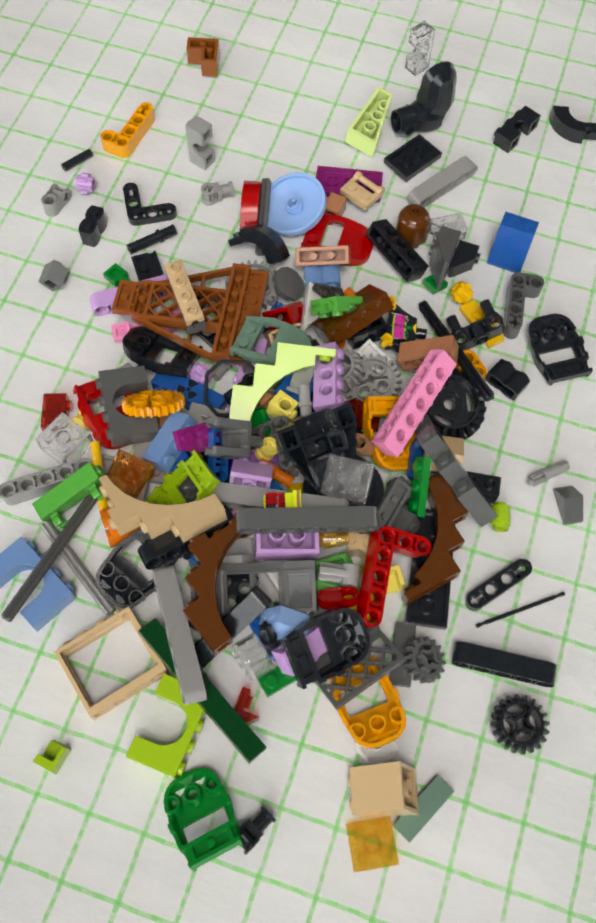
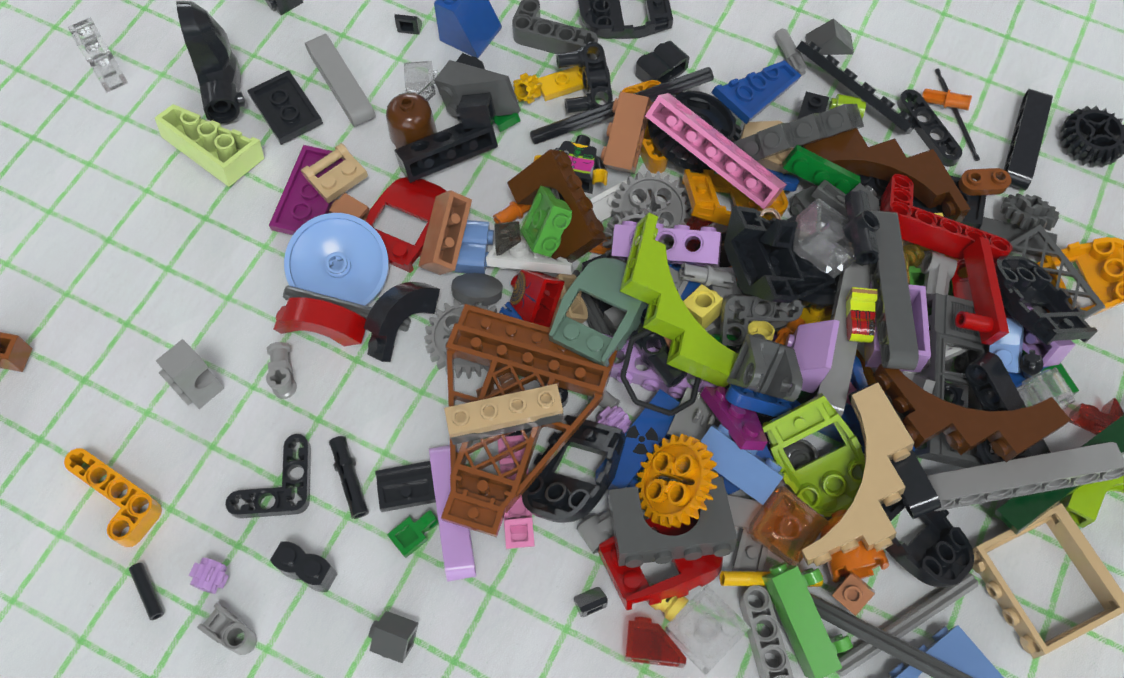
camera: 80 degrees left, 0 degrees up
(80, 375) = (591, 601): none -> black slope
(92, 527) = (853, 593): none -> nougat brick
(291, 598) = (986, 295): none -> red piece
(343, 496) = (861, 228): none -> black piece
(424, 257) = (476, 110): none -> black brick
(446, 621) = (986, 181): none -> dark orange plate
(492, 441) = (757, 90): none -> blue wing
(501, 211) = (408, 24): none -> black slope
(521, 522) = (864, 91): none -> black plate
(530, 597) = (947, 99): none -> orange axle

